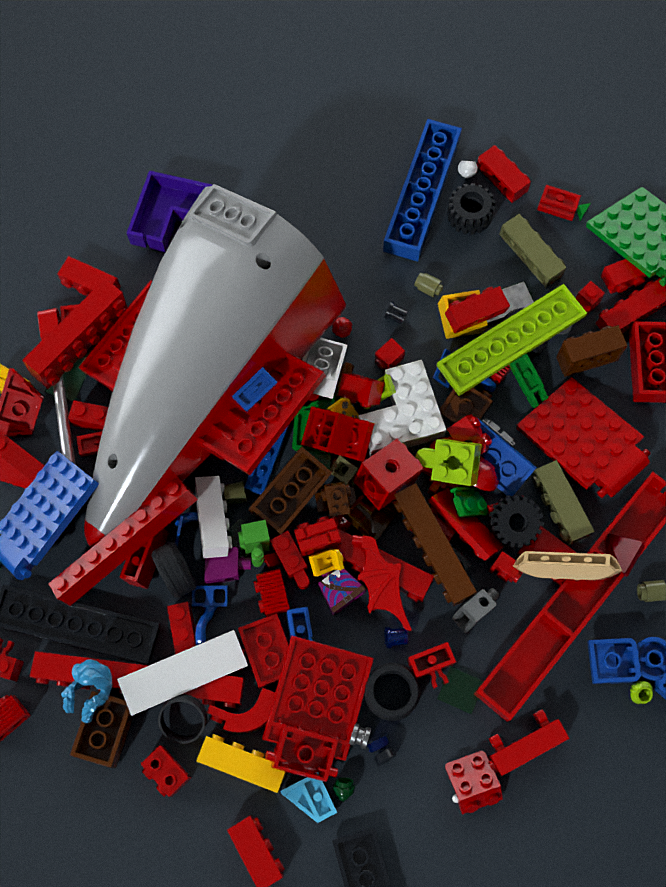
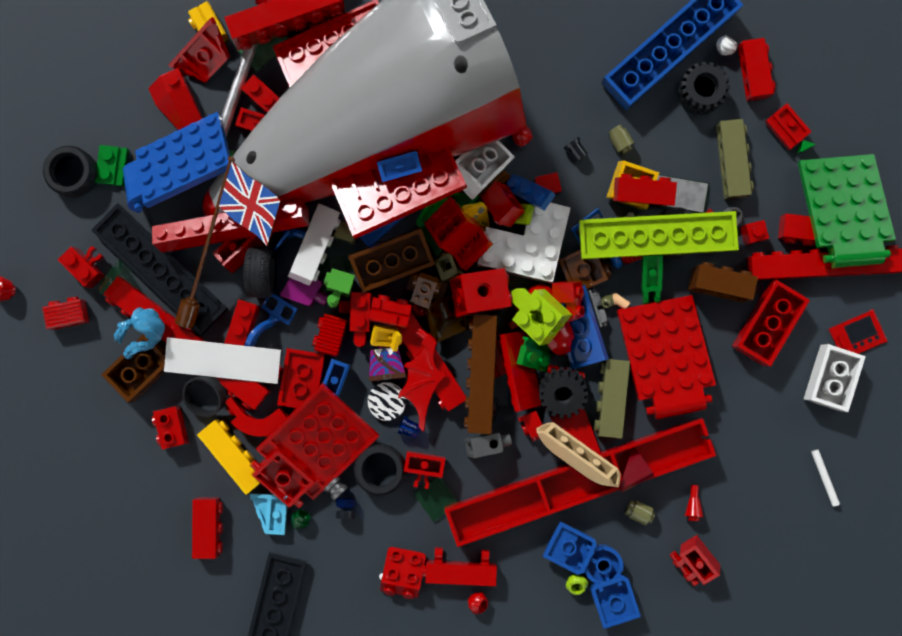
camera: 30 degrees right, 15 degrees up
(31, 656) = (110, 277): none -> clear green piece
(128, 506) = (247, 204): none -> flag
(359, 625) = (384, 401): none -> white tile
(379, 365) = (530, 192): none -> blue plate
(507, 418) = (614, 299): none -> arm
(562, 767) = (477, 603): none -> red piece

